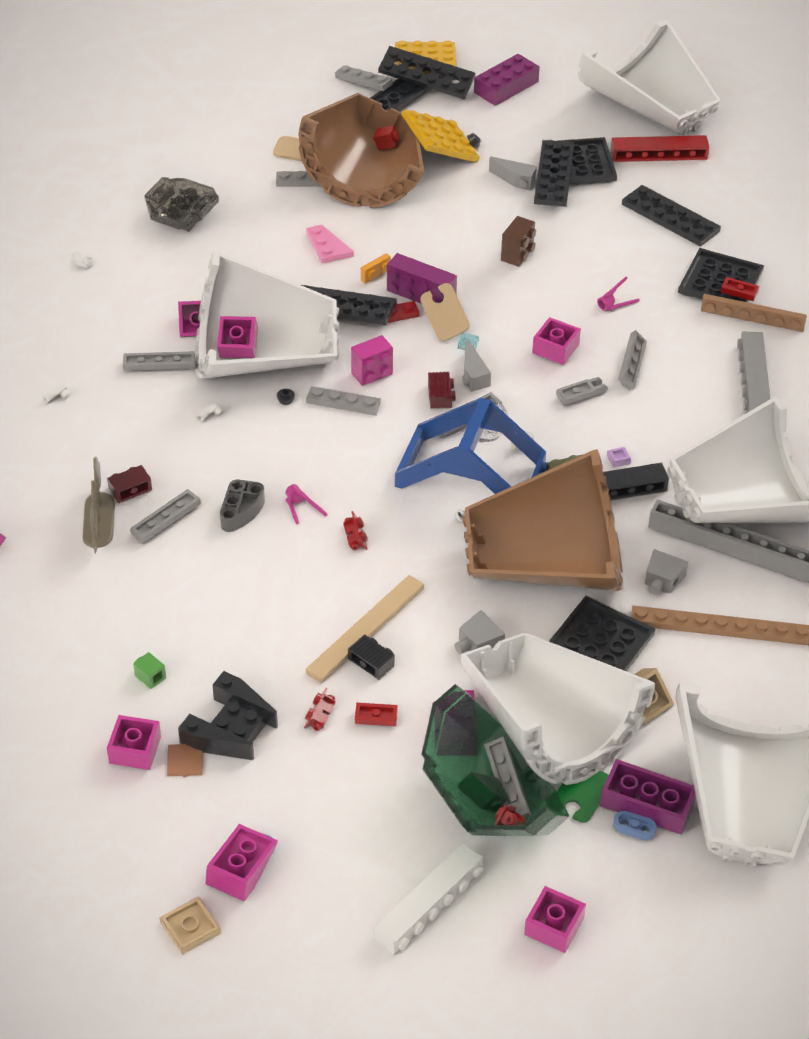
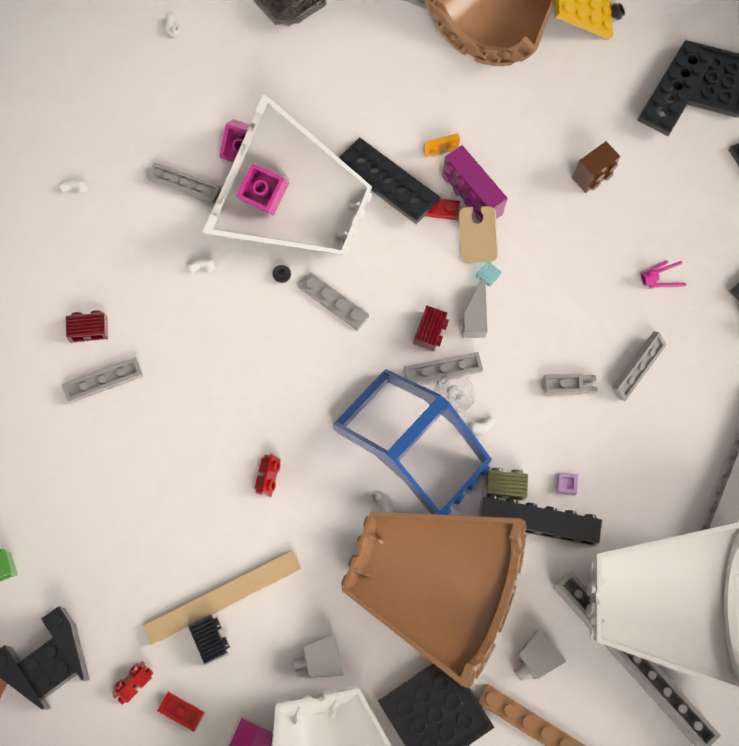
camera: 20 degrees right, 25 degrees up
(98, 513) = (39, 352): dark tan plant -> none
(241, 504) = (182, 397): dark grey beam -> none
(296, 495) = (232, 405): dark pink plant -> none
(327, 244) = (410, 94): bright pink wing -> none
(372, 360) = (379, 268): dark pink brick -> none
(513, 172) = (637, 70): light grey slope -> none
(556, 340) = (573, 312): dark pink brick -> none

